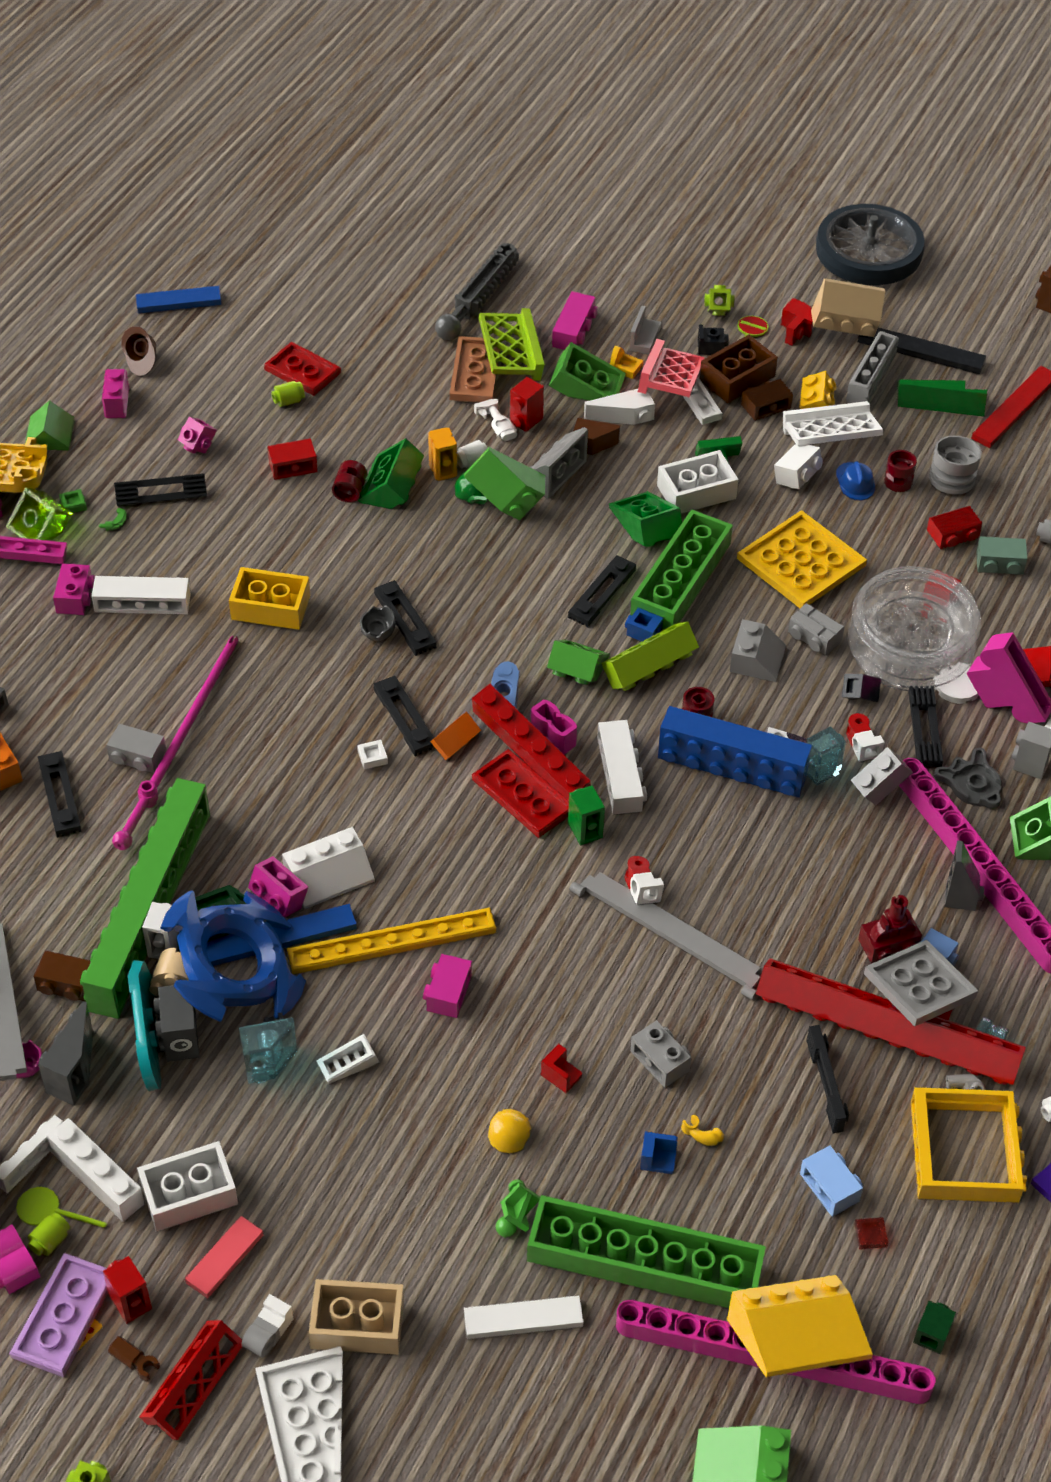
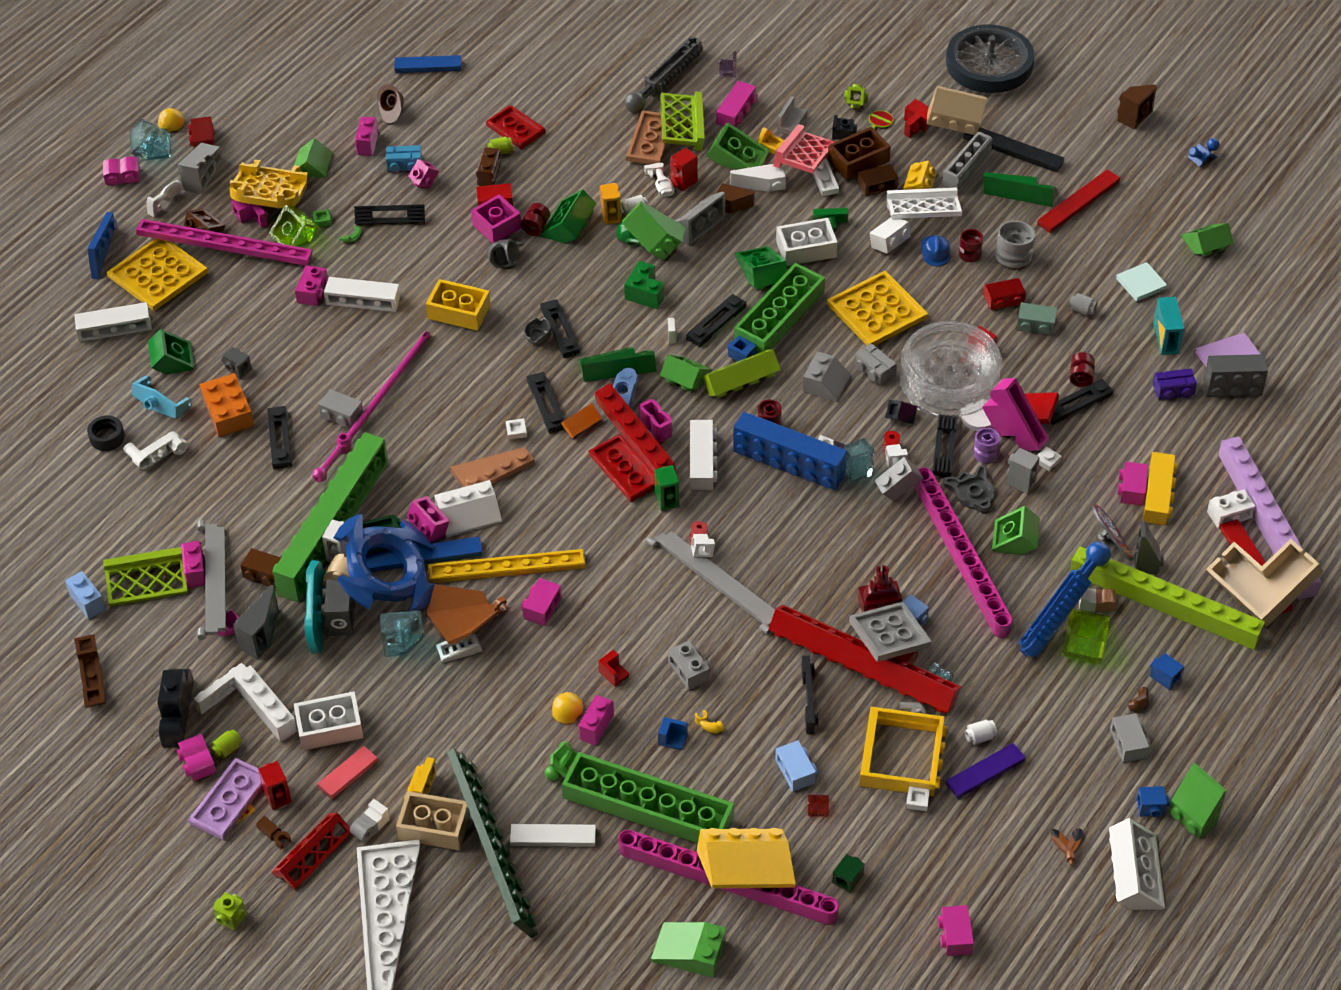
camera: 10 degrees right, 0 degrees up
(43, 1202) = (225, 722): lime piece -> none
(166, 417) = (402, 157): none -> dark azure brick
(278, 420) = (488, 166): none -> reddish brown brick
(300, 484) = (496, 219): none -> dark pink brick
(318, 524) = (504, 250): none -> dark grey piece
(330, 1256) = (423, 777): none -> yellow bracket
(344, 1012) = (461, 611): none -> dark orange panel
(349, 809) = (493, 467): none -> nougat wing
(453, 1352) = (491, 837): none -> dark green plate
(485, 655) = (610, 363): none -> green slope
(502, 557) = (643, 287): none -> green brick
(549, 608) = (671, 330): none -> white tile
(552, 1145) = (596, 720): none -> dark pink brick
(554, 276) = (728, 68): none -> clear purple panel
(963, 881) = (943, 562): dark grey slope -> none
(979, 721) = (986, 445): none -> medium lavender wheel
(1001, 1209) = (917, 798): none -> white plate

